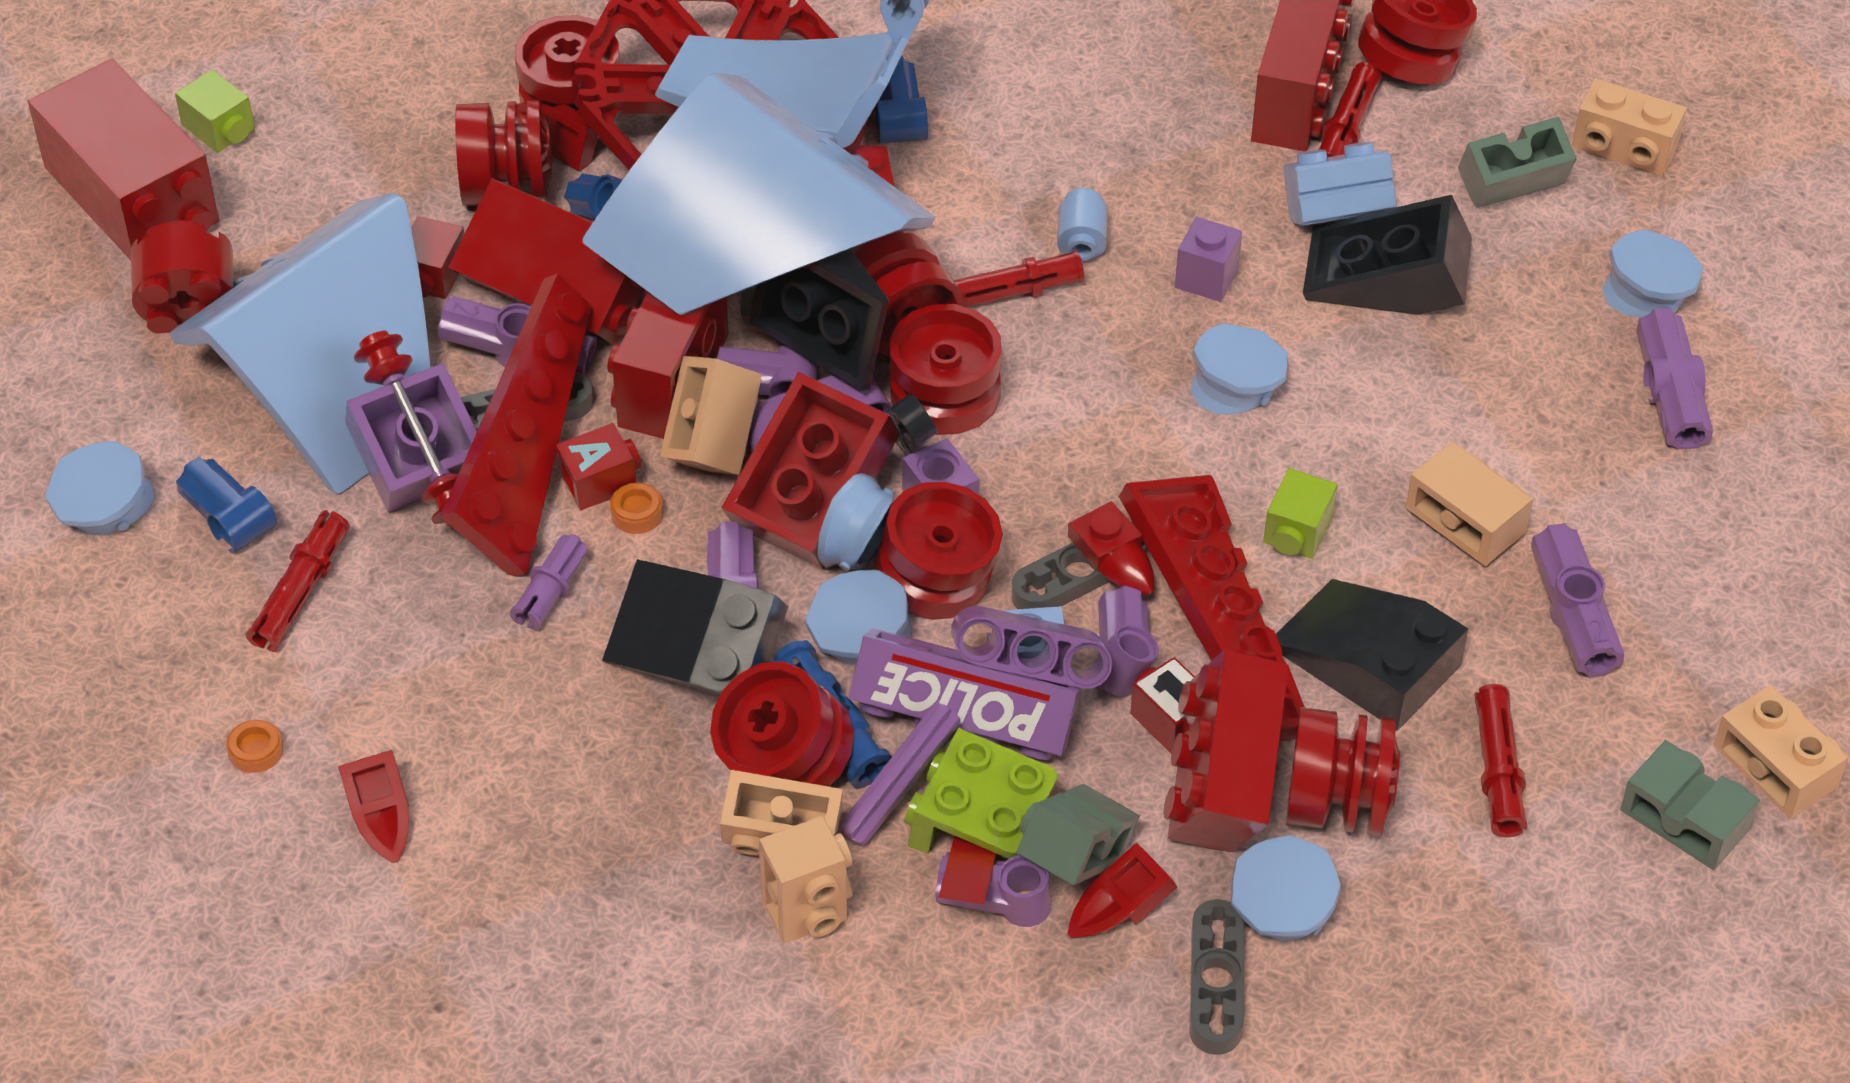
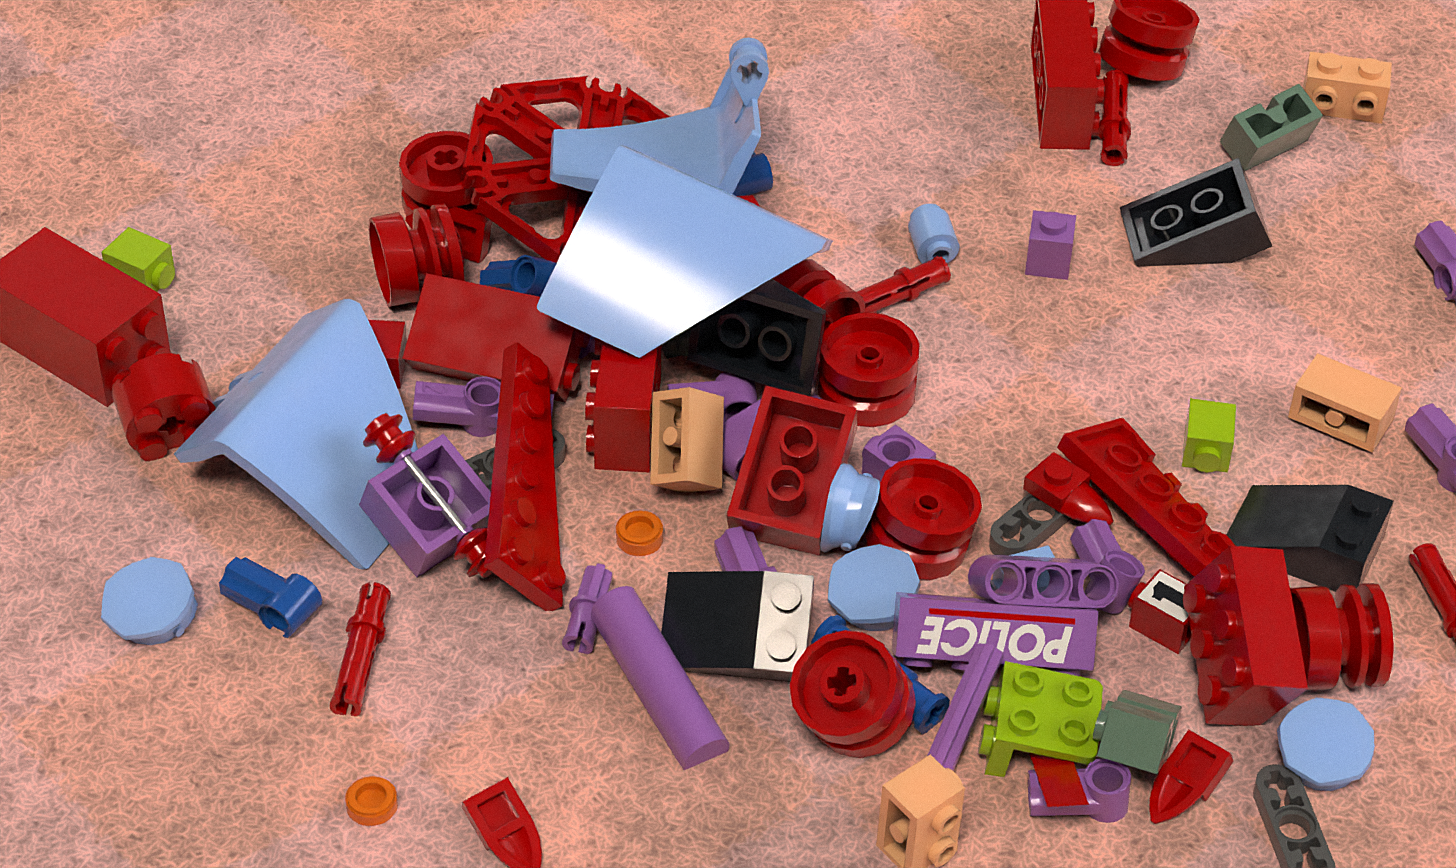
camera: 15 degrees left, 5 degrees down
(592, 671) = (658, 678): none -> medium lavender brick
(597, 465) = (594, 502): red brick -> none
(766, 805) = (861, 762): light nougat brick -> none
(912, 424) = (874, 414): black beam -> none
(1236, 369) = (1107, 330): light blue hat -> none
(1339, 185) = (1134, 169): light blue brick -> none
(1650, 273) = (1409, 199): light blue hat -> none

